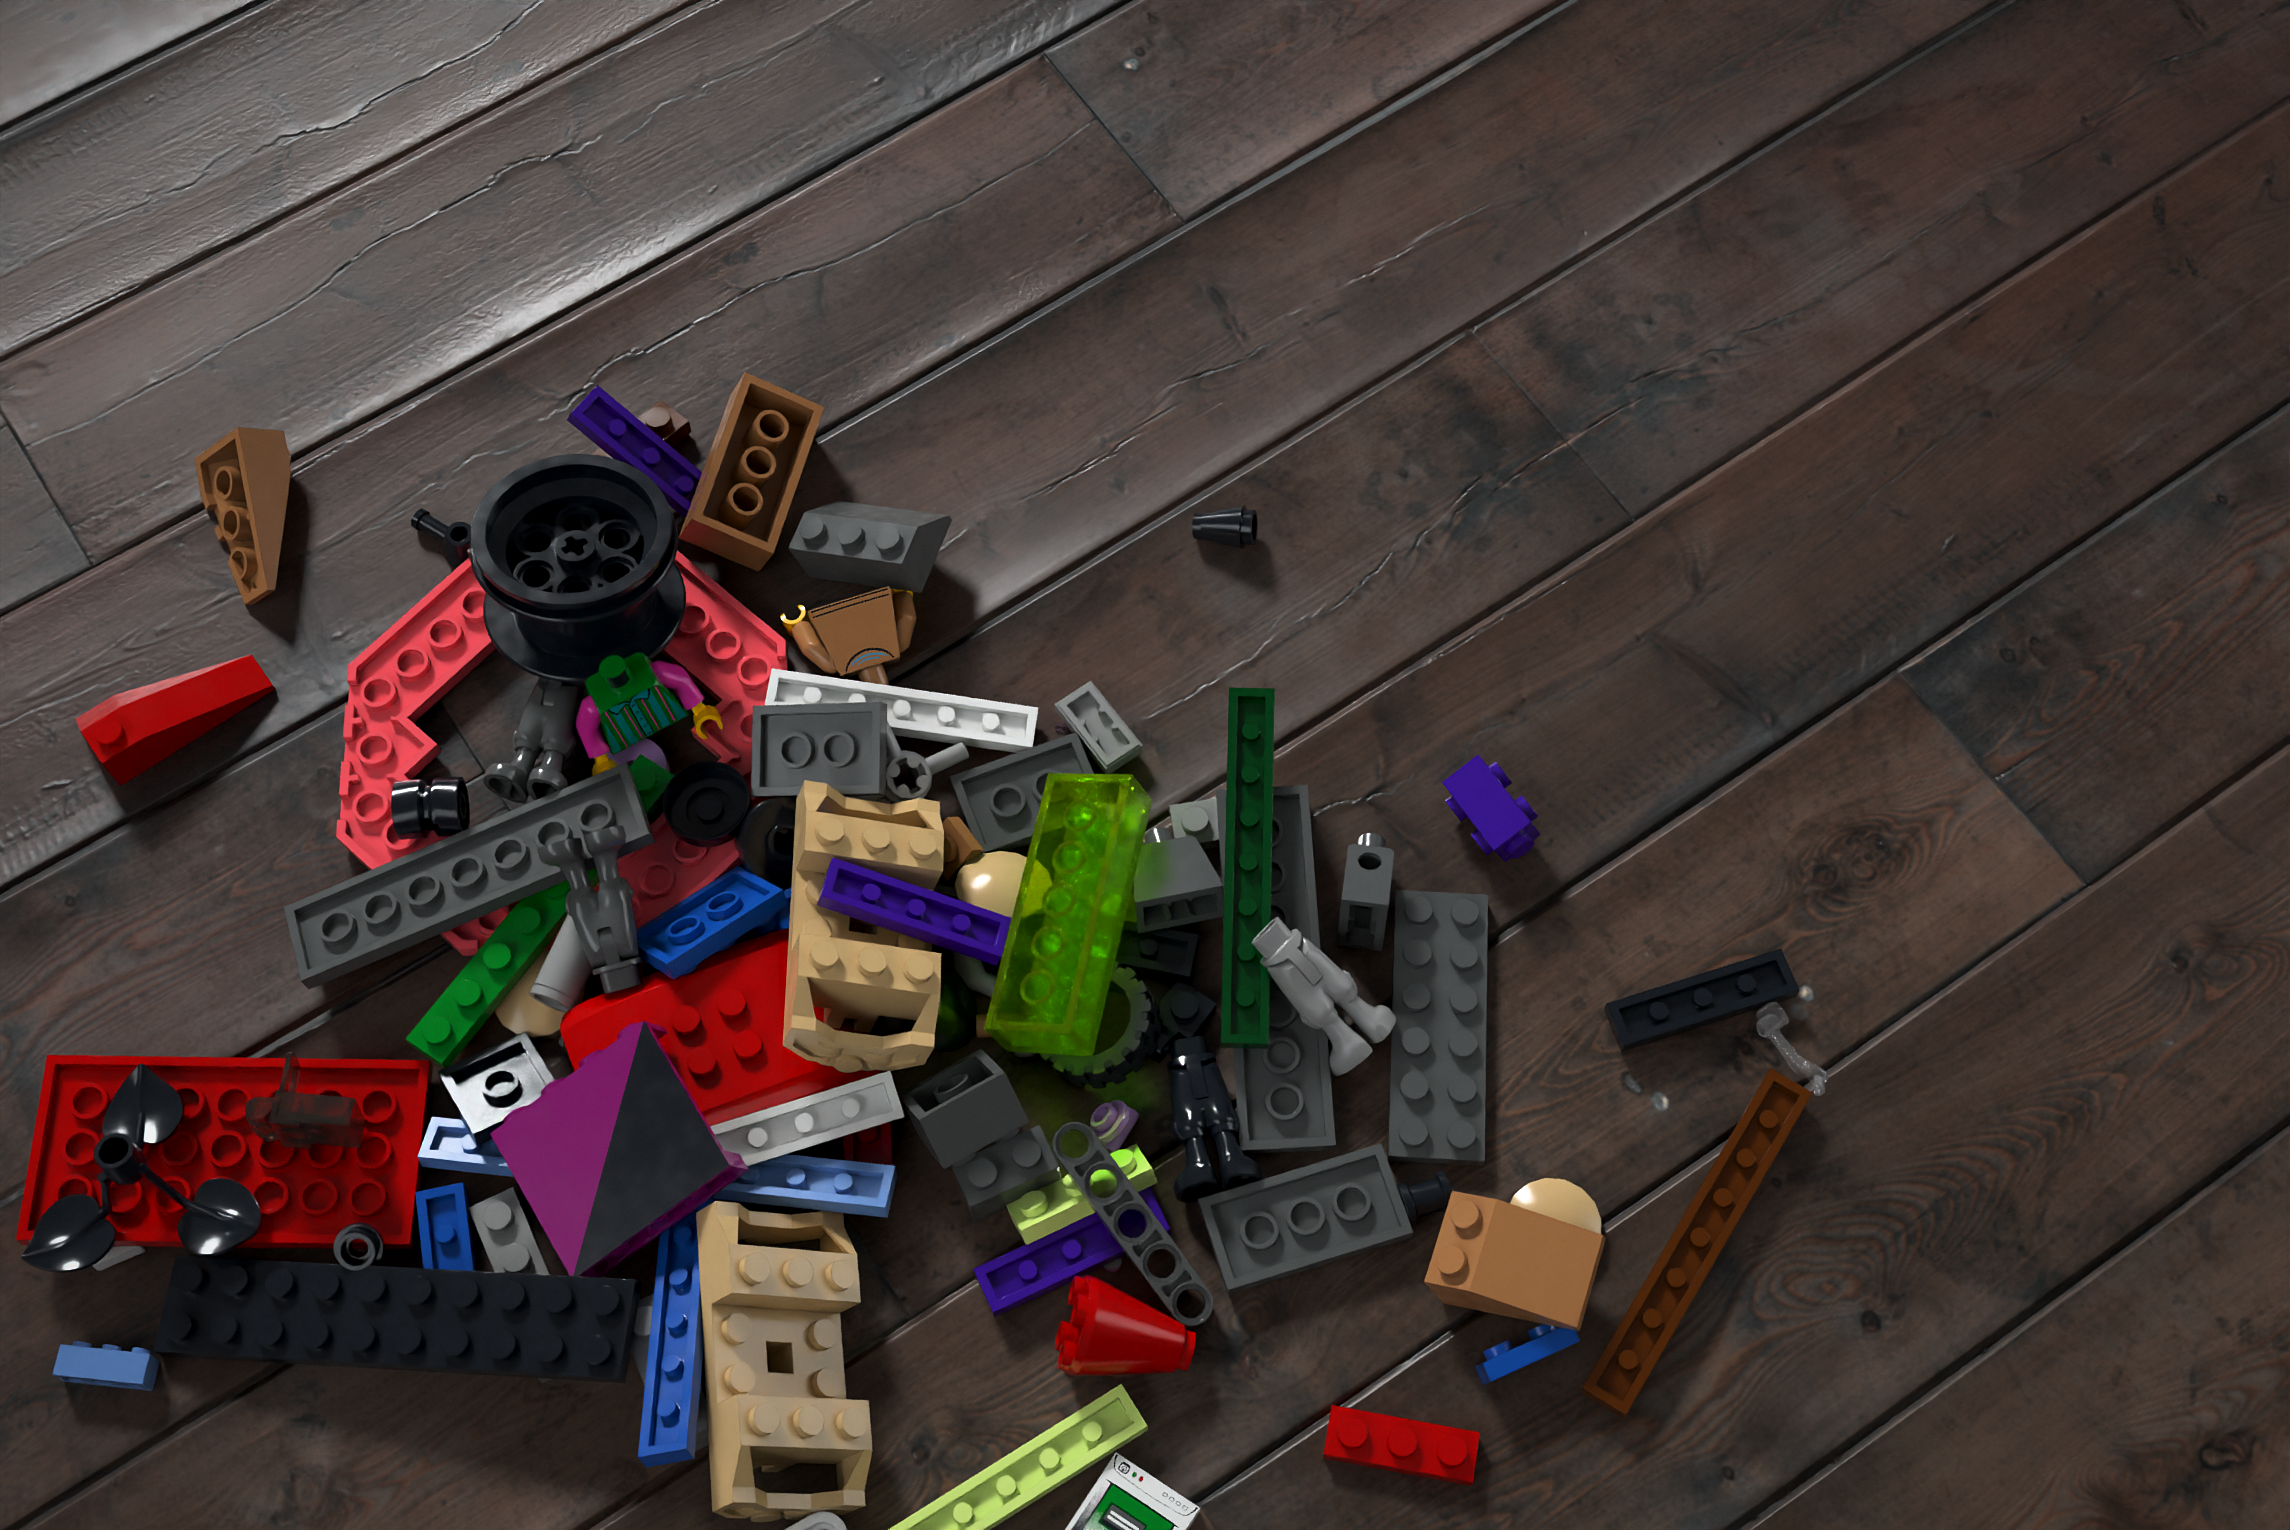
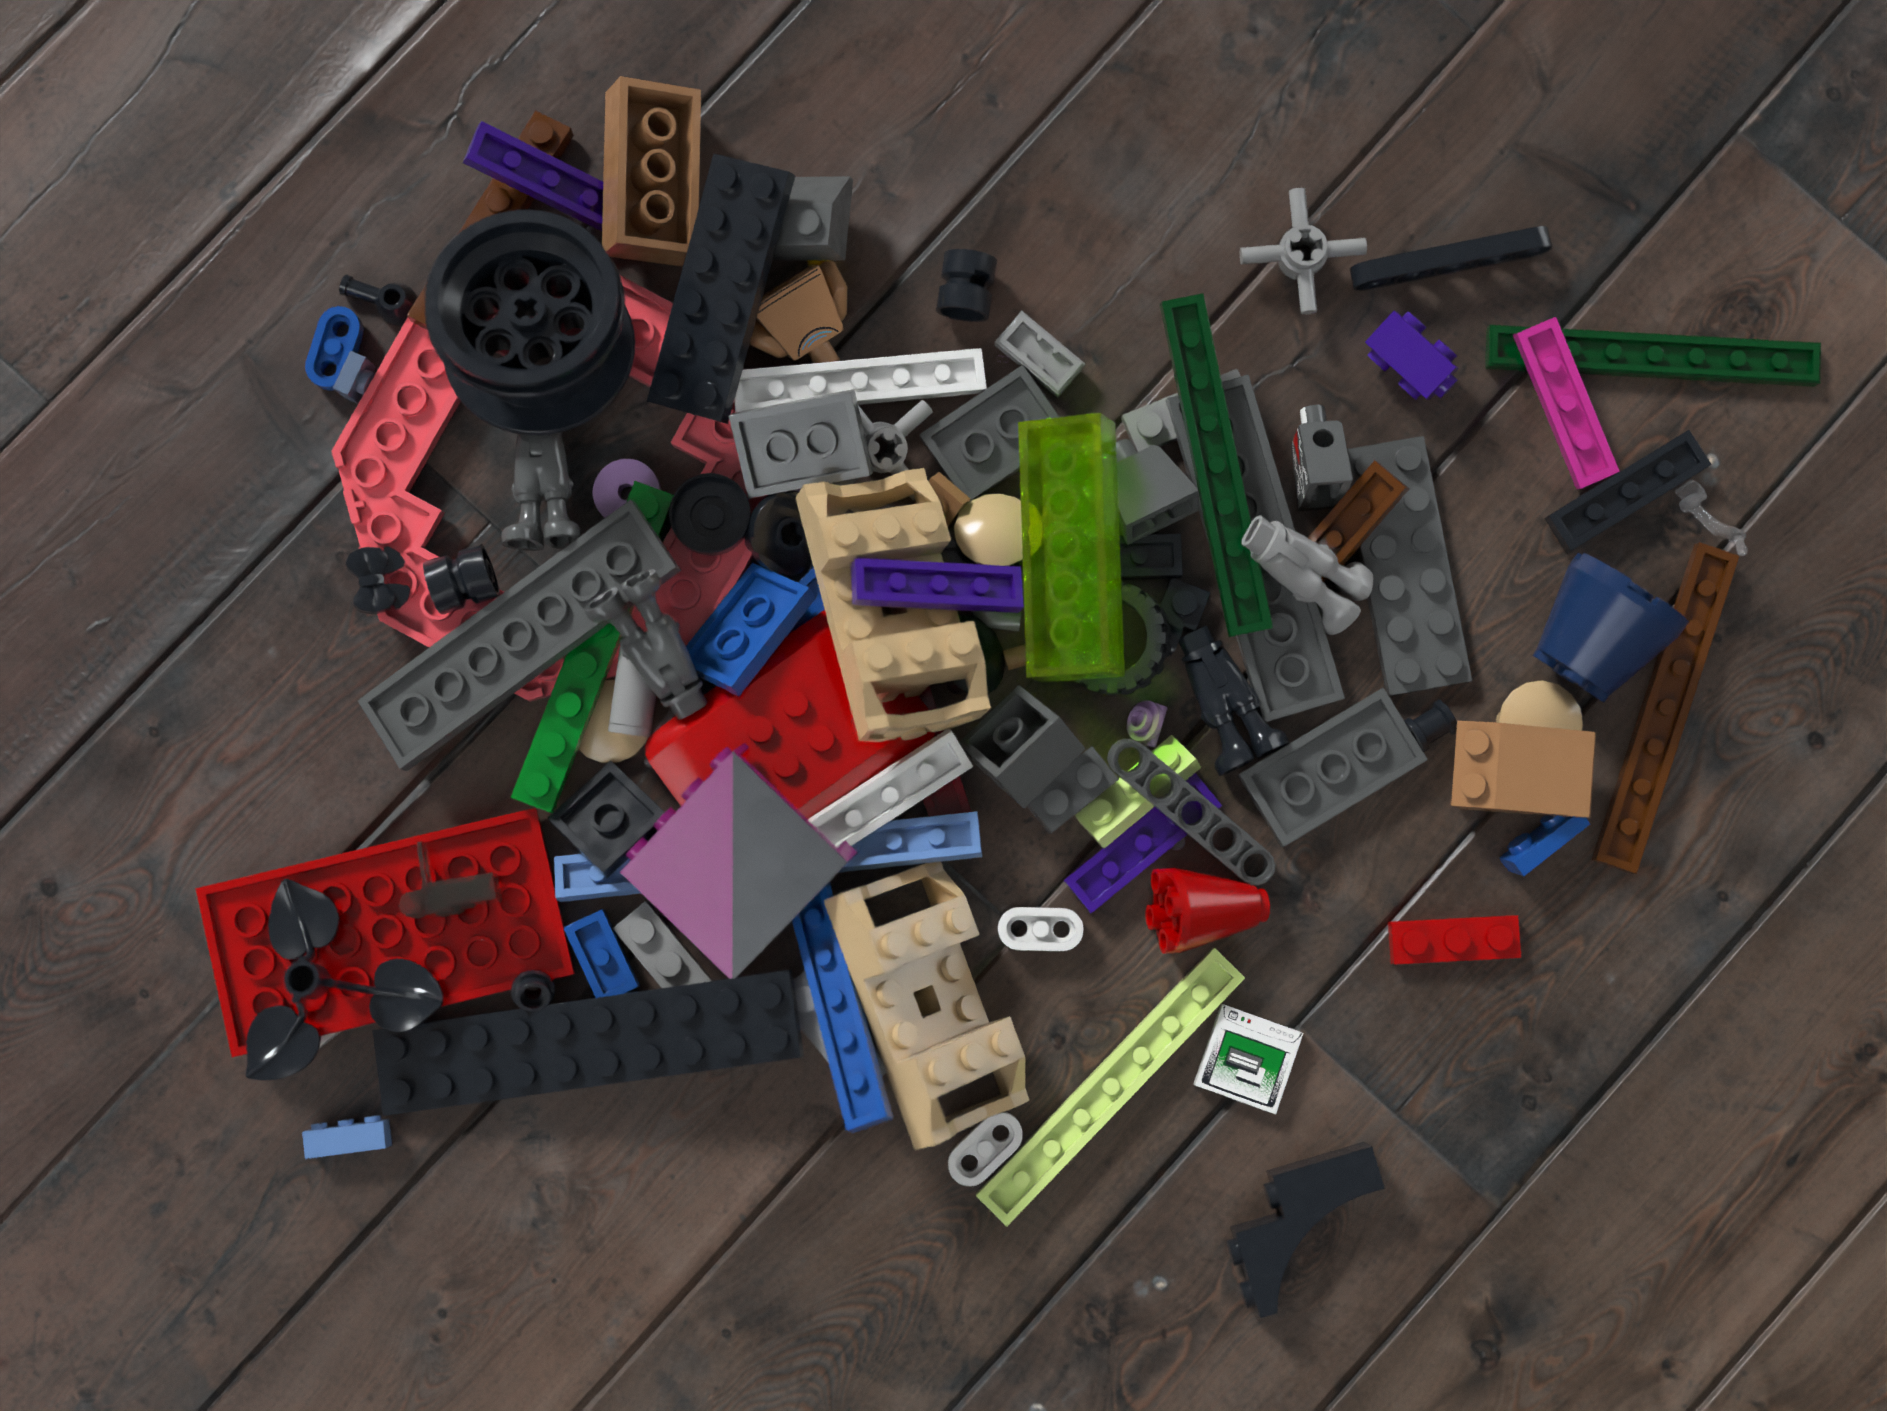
camera: 20 degrees left, 20 degrees up
(158, 719) = (167, 542): red wedge -> none
(248, 489) = (173, 293): medium nougat wedge -> none
(344, 779) = (369, 566): none -> black piece
(384, 573) = (331, 349): none -> blue plate
(395, 600) = (354, 377): none -> sand blue plate
(633, 701) = (616, 435): torso -> none
(784, 586) = (721, 287): none -> black plate
(934, 1319) = (1040, 929): none -> white plate
(1041, 641) = (967, 279): none -> black wheel
(1227, 526) = (1107, 124): black cone -> none
(1394, 952) = (1359, 512): none -> reddish brown plate
(1404, 670) = (1291, 261): none -> light grey bar
(1556, 725) = (1450, 258): none -> black beam
(1638, 1126) = (1604, 628): none -> dark blue cone
(1649, 892) = (1566, 403): none -> dark pink plate
(1761, 870) = (1671, 356): none -> dark green tile

